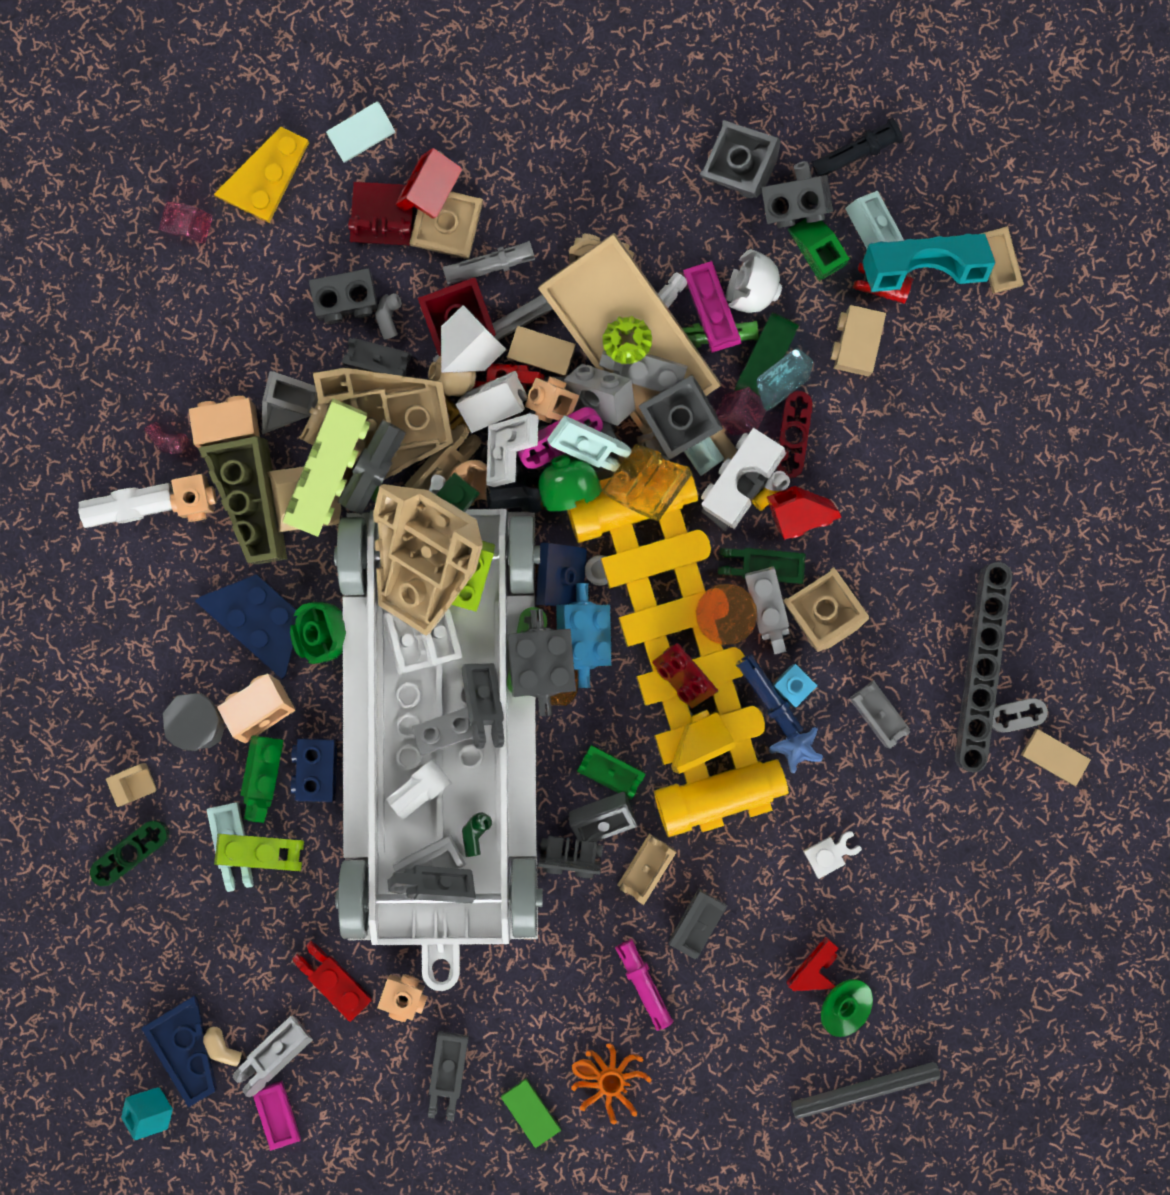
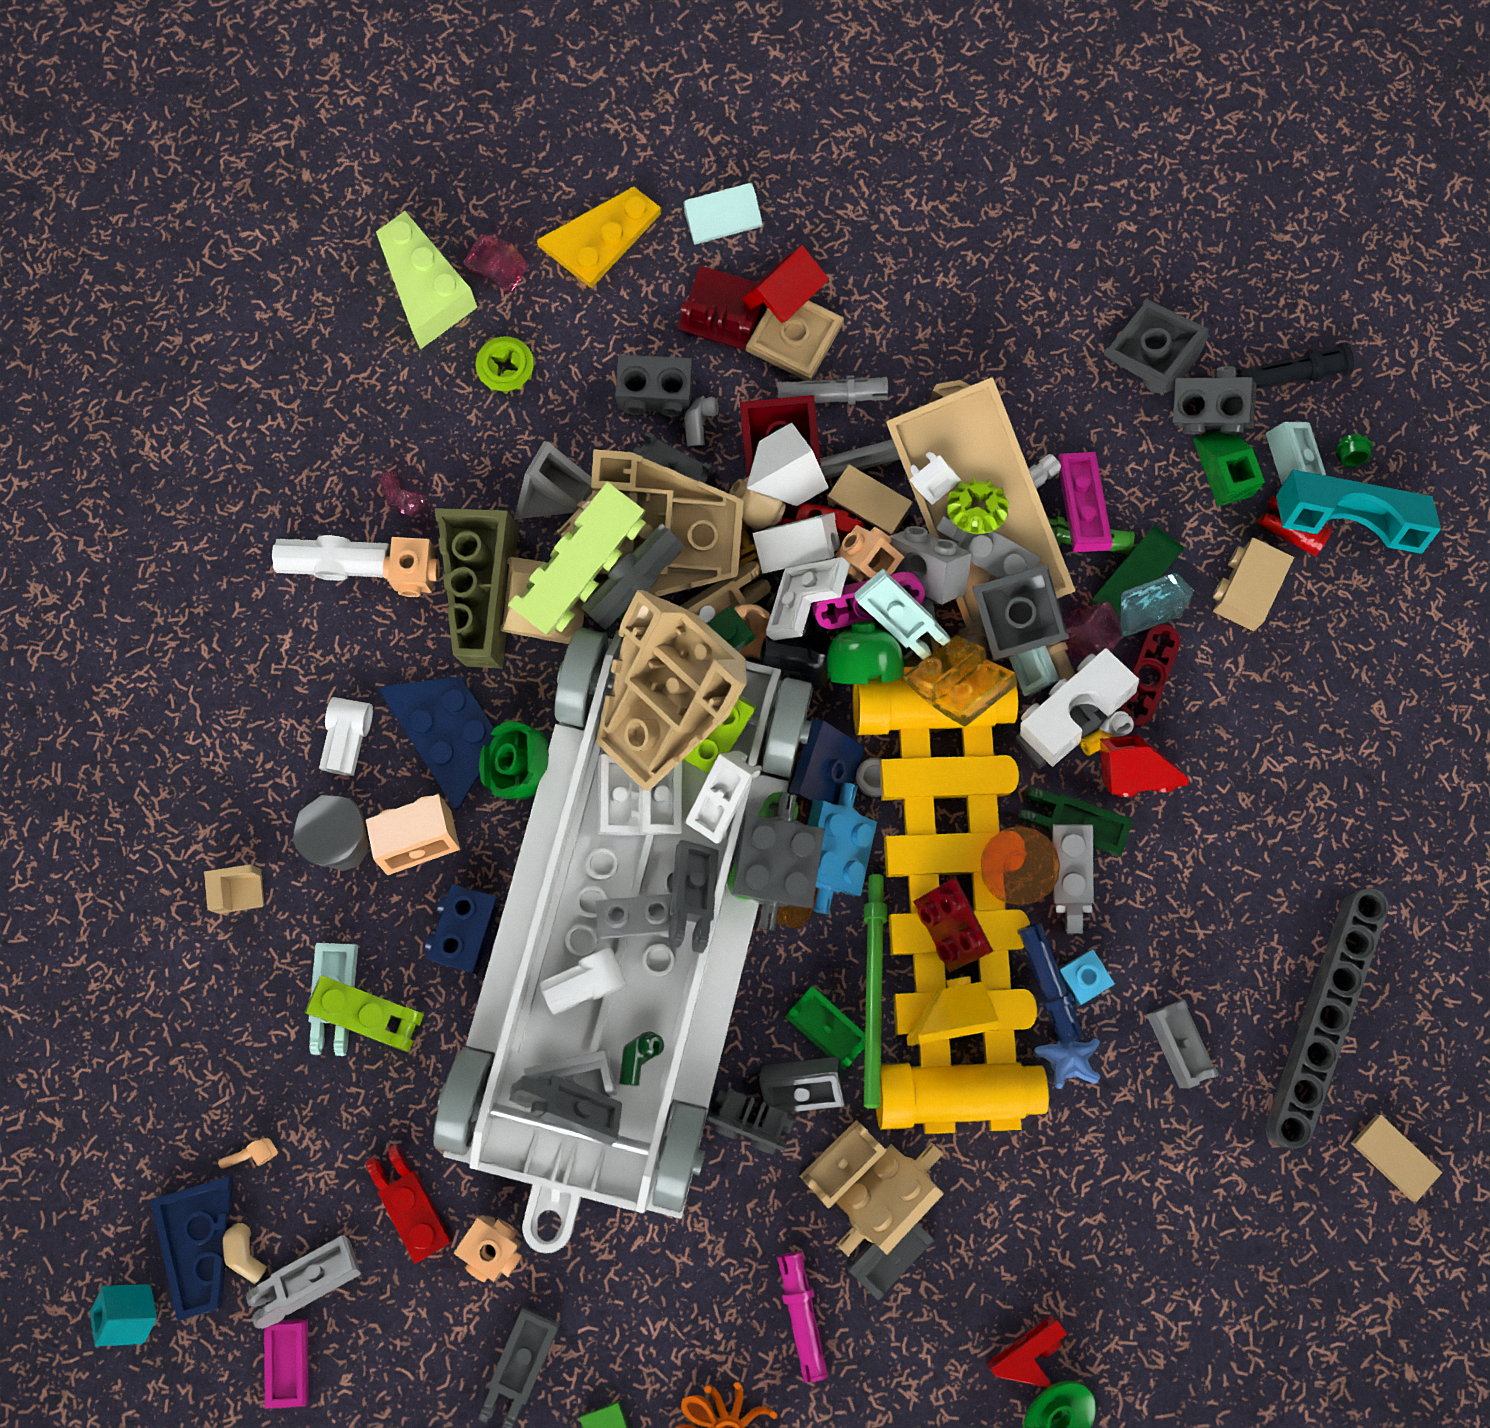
camera: 15 degrees right, 10 degrees down
(106, 859) = (175, 975): dark green beam -> none
(132, 255) = (425, 281): none -> yellowish green wedge
(179, 635) = (346, 726): none -> white piece
(210, 296) = (501, 350): none -> lime gear
(210, 971) = (259, 1150): none -> light nougat hand
(223, 421) = (473, 486): light nougat brick -> none
(260, 776) = (394, 920): green hinge -> none
(486, 624) = (721, 795): none -> white hinge
(588, 326) = (935, 478): none -> white tile
(626, 678) = (875, 916): none -> bright green bar
(687, 885) = (889, 1199): none -> tan plate
(754, 284) = (1142, 487): white cylinder -> none
(826, 611) = (1145, 896): tan slope -> none
(826, 855) = (1076, 1209): white plate -> none
(917, 206) = (1354, 450): none -> green plate
(1006, 270) = (1446, 549): tan tile -> none
(1020, 722) = (1357, 1099): light grey beam -> none

